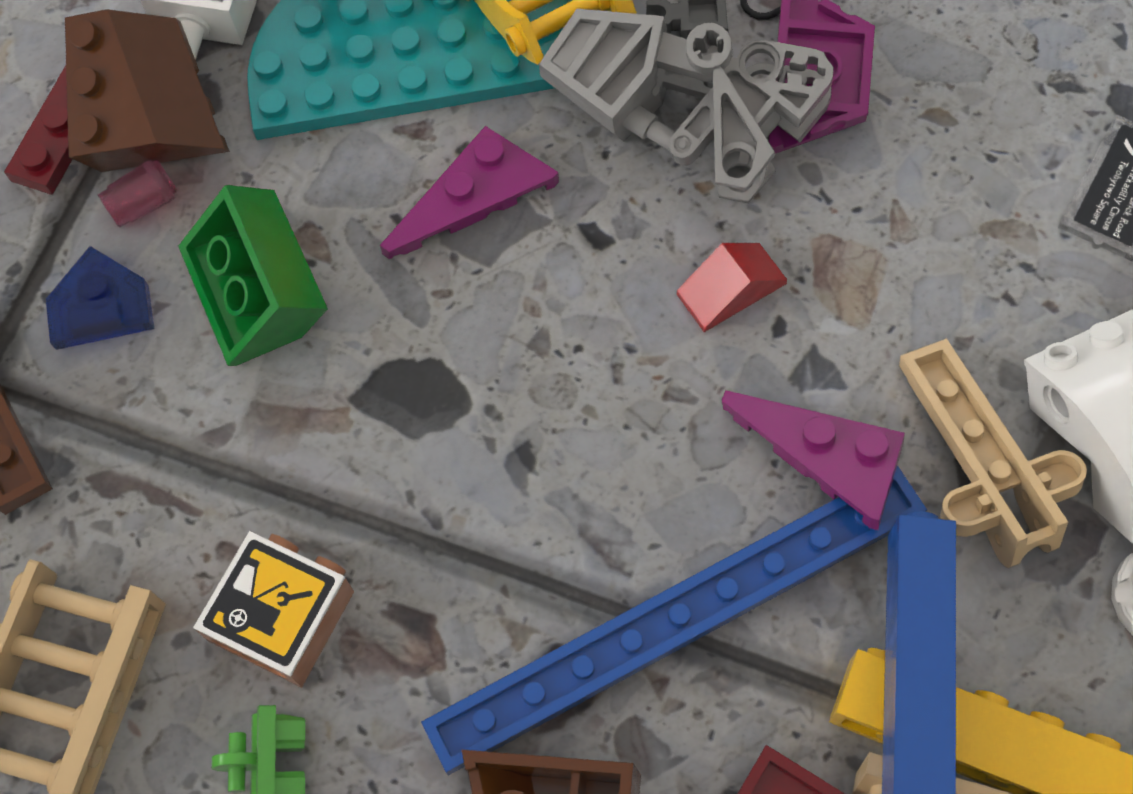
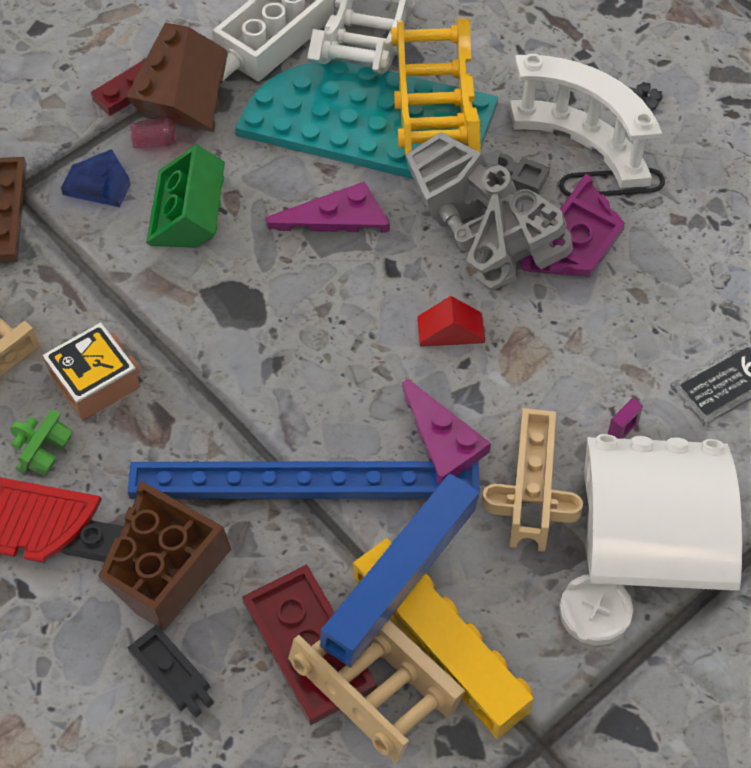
camera: 25 degrees right, 10 degrees down
(1045, 307) = (625, 419): none -> magenta tile

